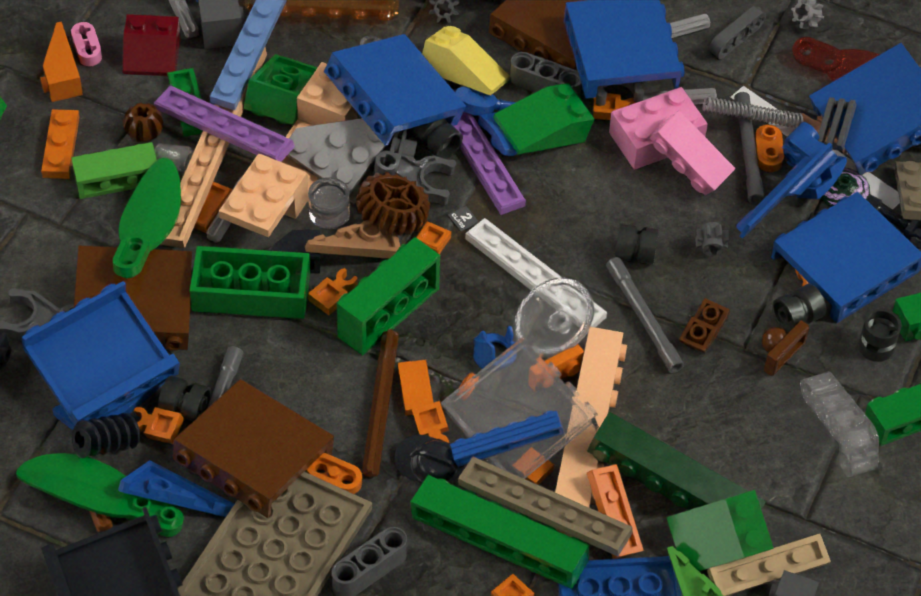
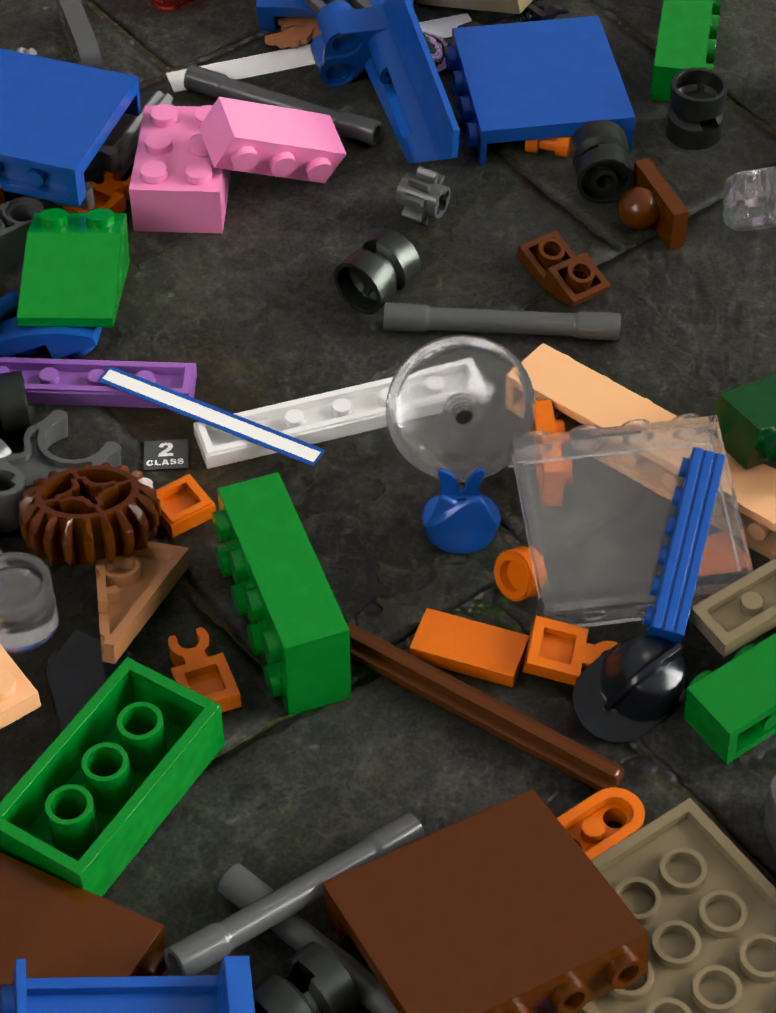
camera: 60 degrees left, 5 degrees down
(192, 355) = (219, 939): none -> dark grey piece
(492, 221) = (212, 416): none -> sticker
(769, 142) = (298, 84): orange plate -> none
(773, 117) = (250, 62): light grey piece -> none

